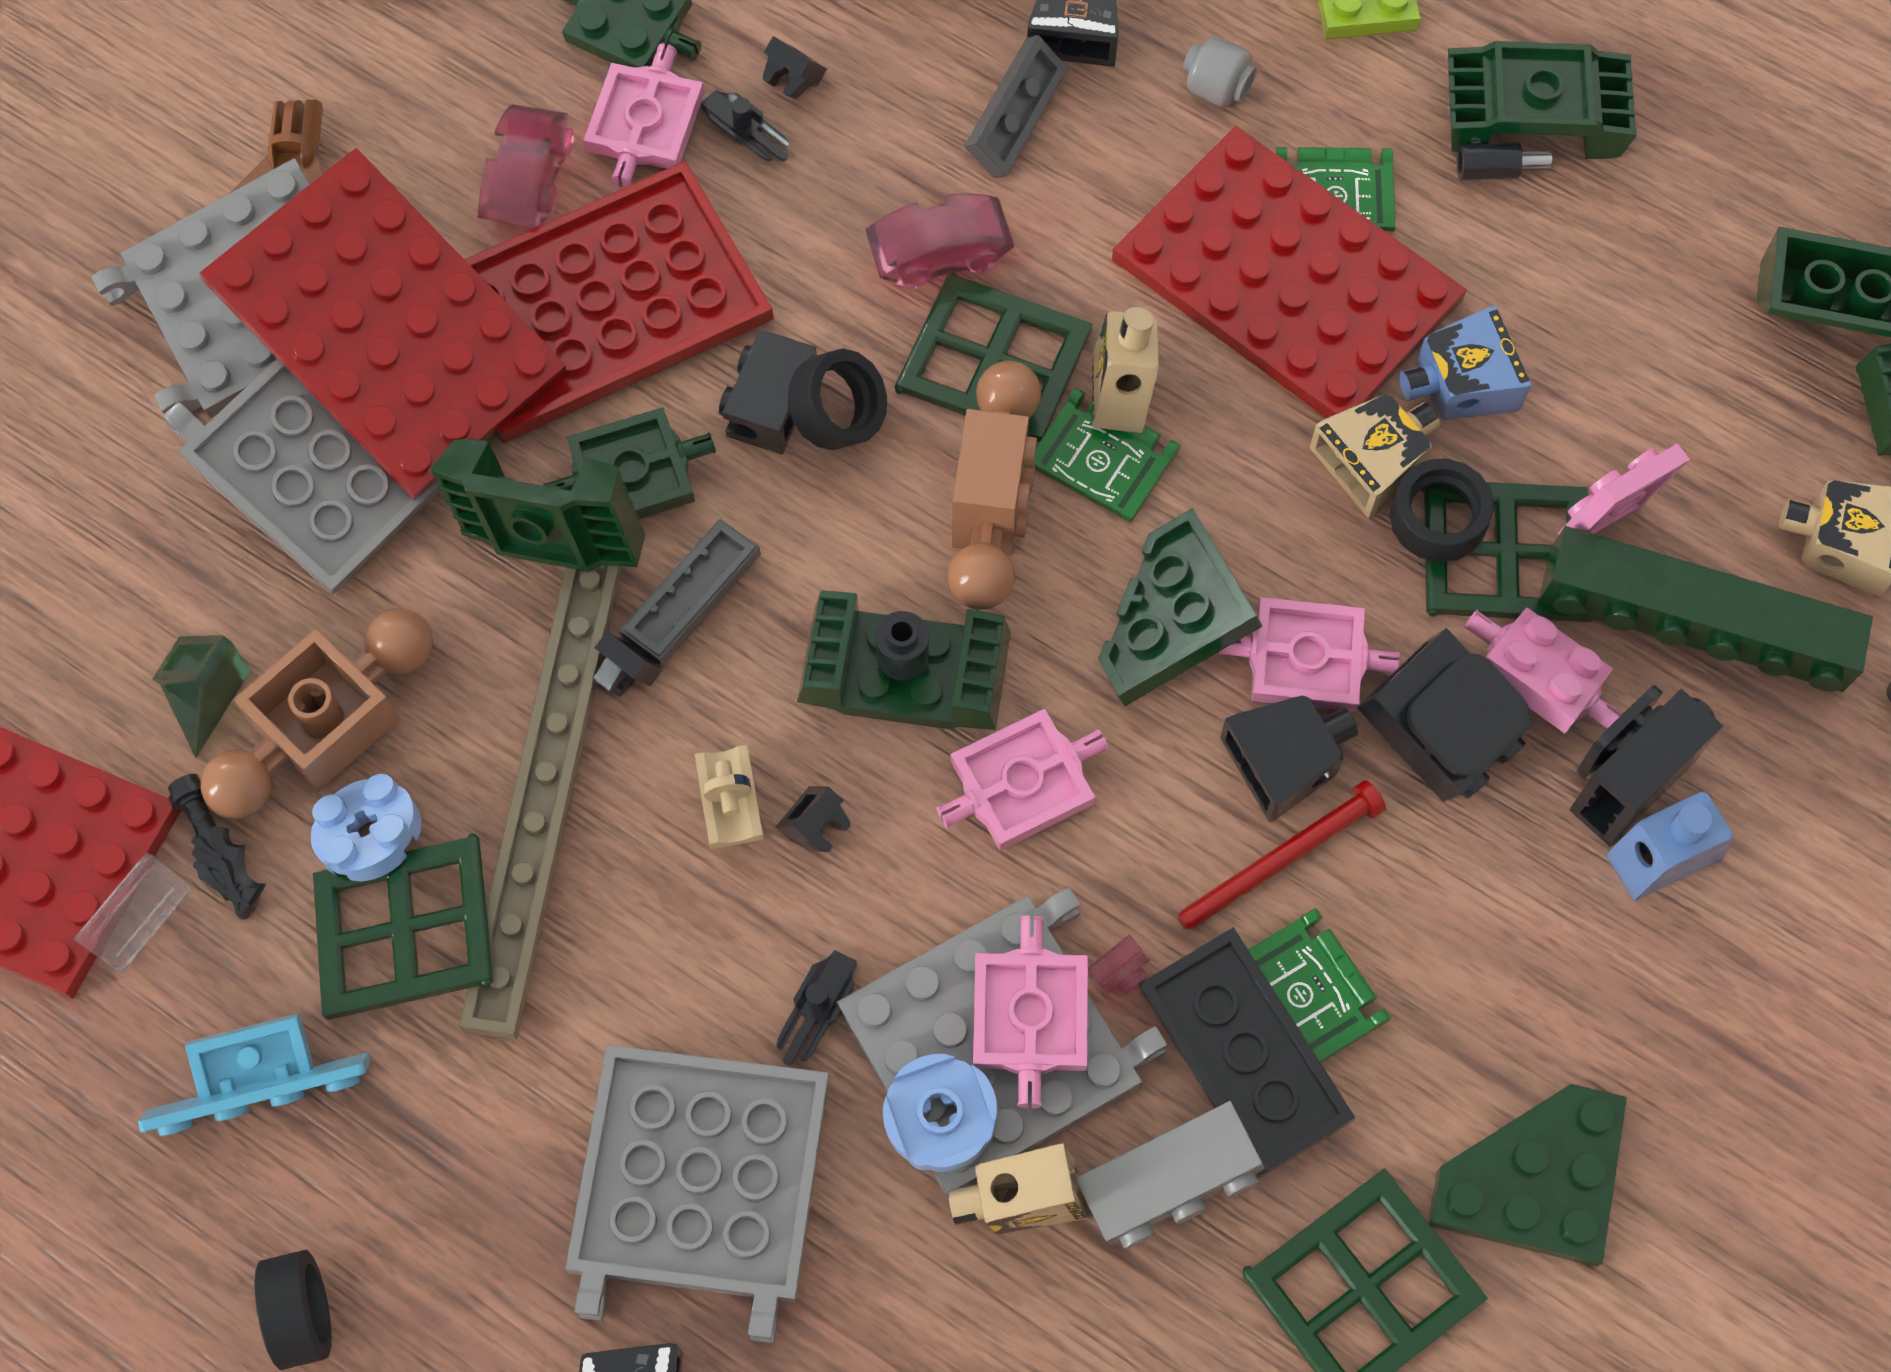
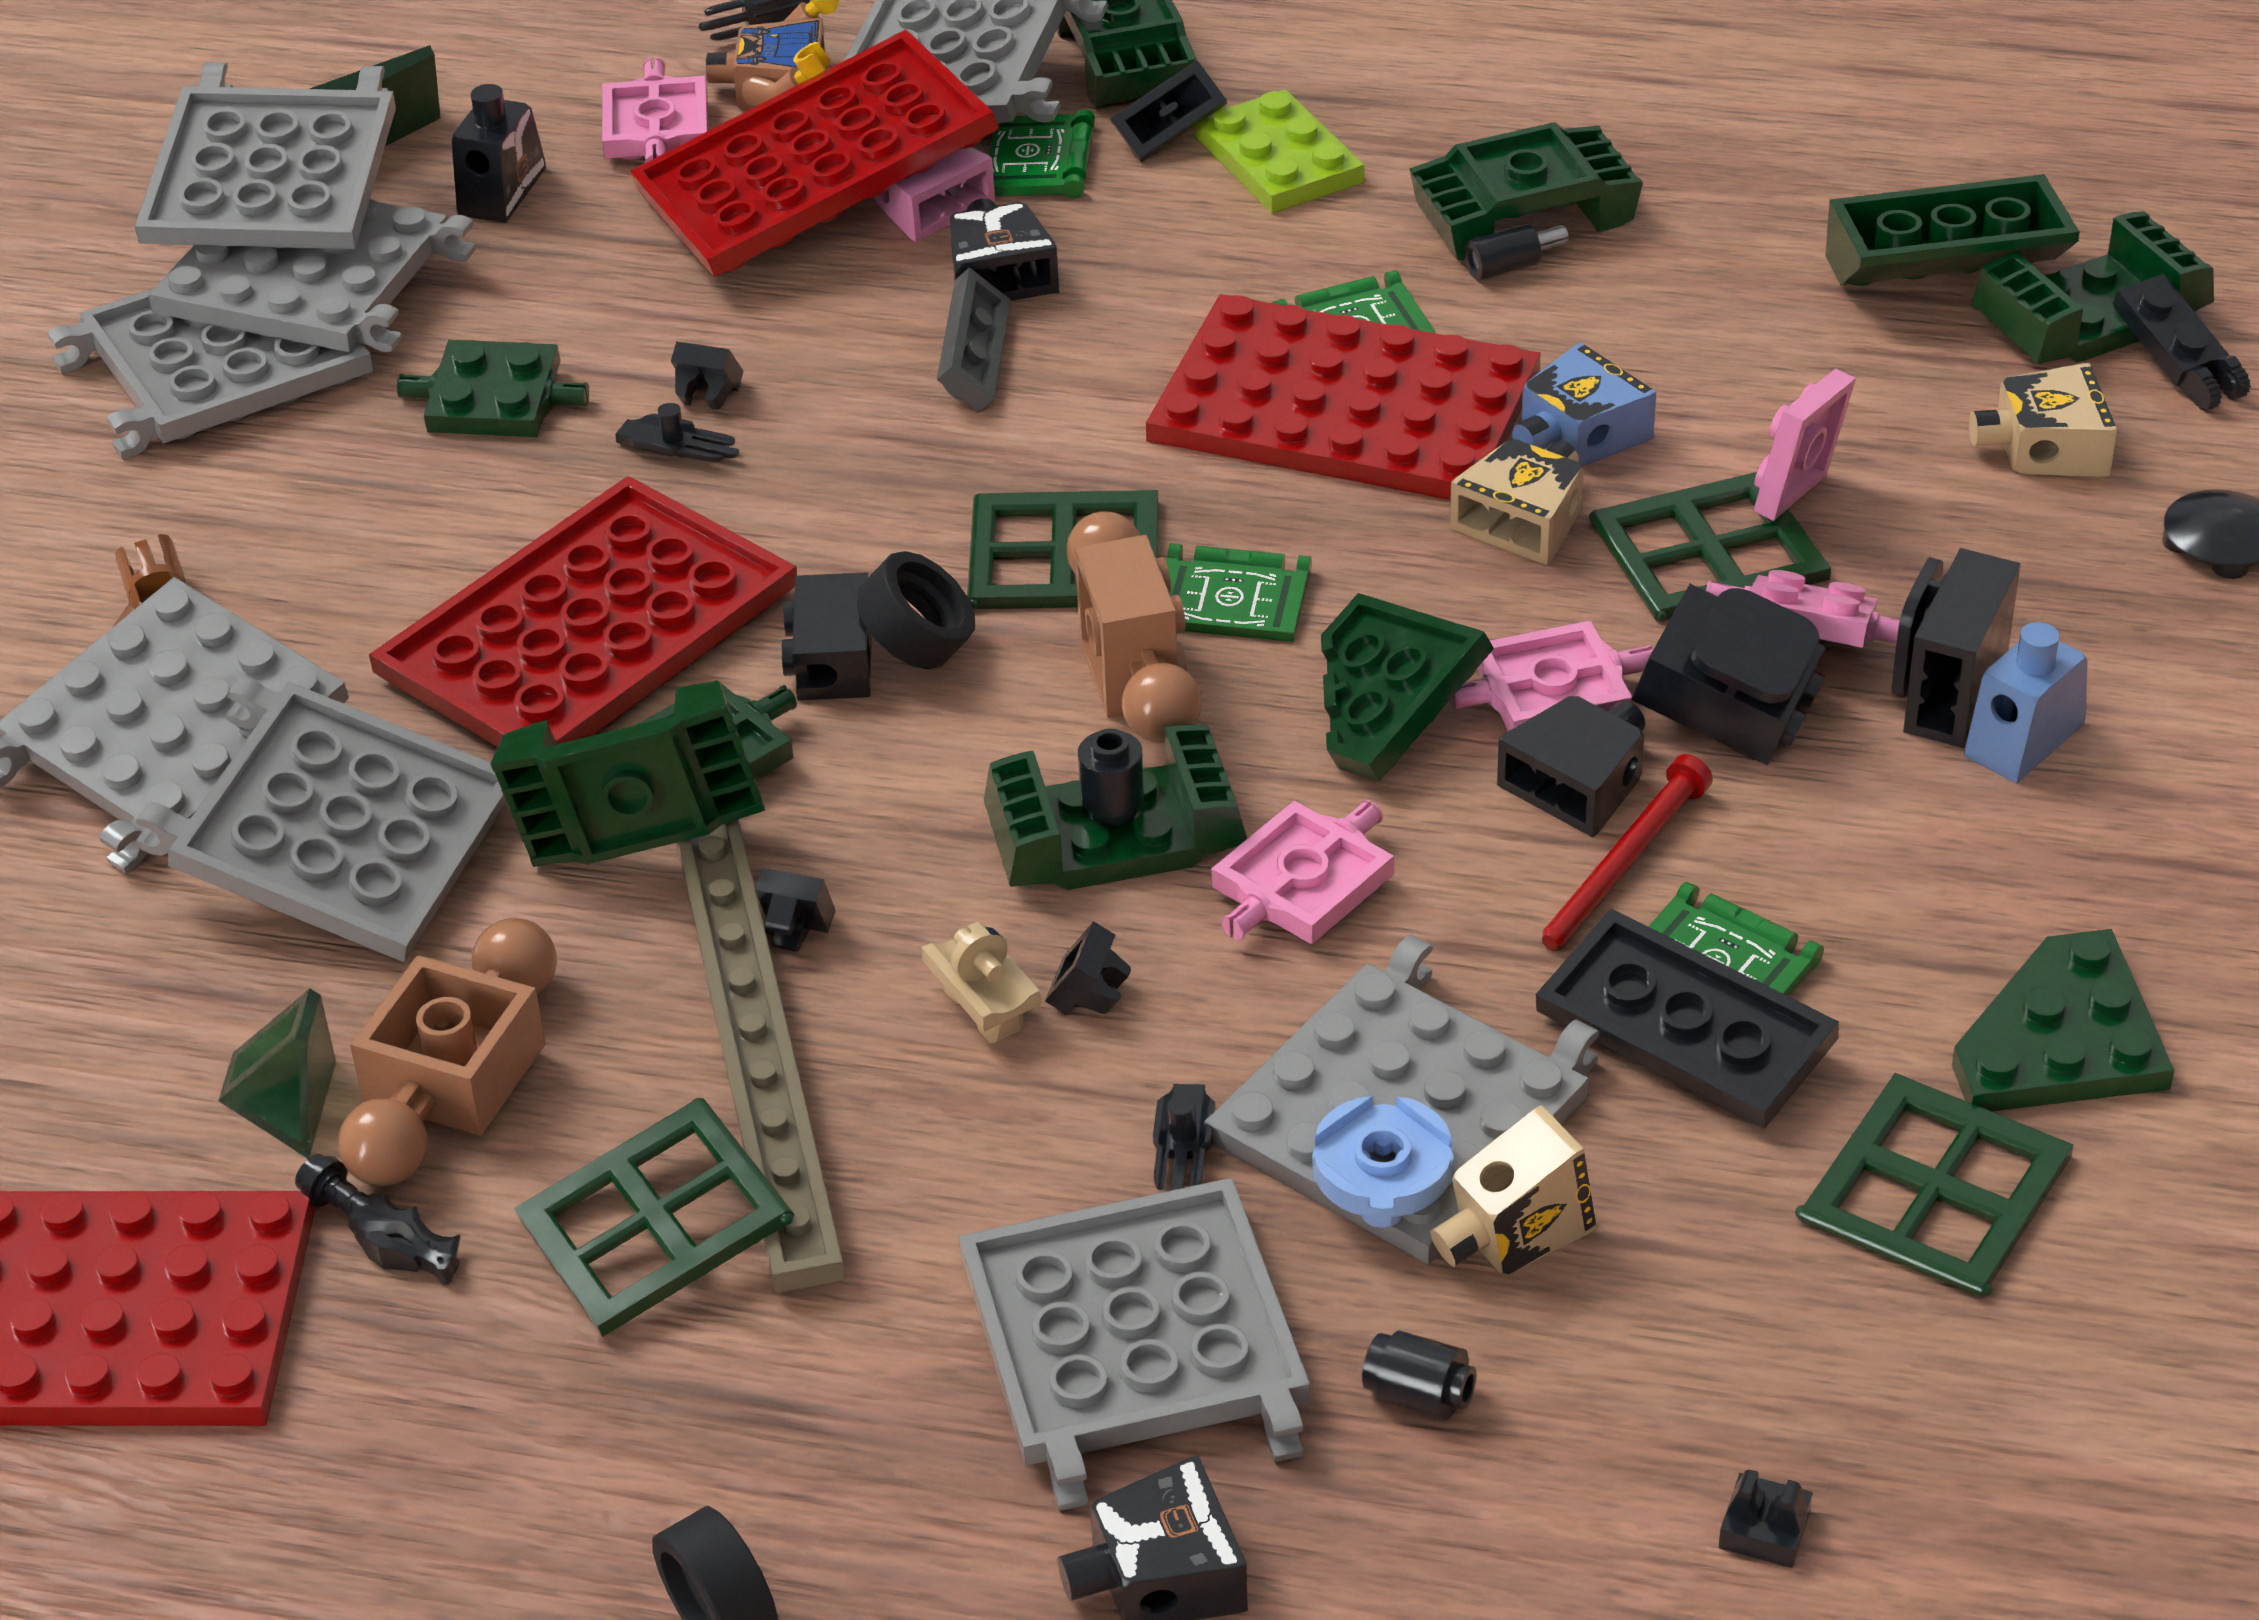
camera: 20 degrees left, 25 degrees down
(133, 913) = (310, 1305): clear tile -> none
(251, 1067) = (533, 1394): medium azure bracket -> none
(345, 812) = (560, 1137): light blue plate -> none
(382, 321) = (357, 672): red plate -> none
(521, 179) = (445, 528): clear pink brick -> none
(644, 116) = (556, 457): bright pink plate -> none
(690, 592) = (838, 820): dark grey plate -> none
(883, 1316) = (1419, 1374): none -> black brick
(940, 239) = (952, 459): clear pink brick -> none
(1030, 1012) = (1433, 1037): bright pink plate -> none
(1120, 967) = (1507, 990): clear pink plate -> none
(1124, 347) = (1220, 491): tan torso -> none
(1171, 1176) = (1674, 1131): light grey brick -> none
(1219, 71) = (1178, 255): light grey head -> none
(1449, 476) = (1623, 548): black tyre -> none
(1706, 610) = (1936, 514): dark green brick -> none

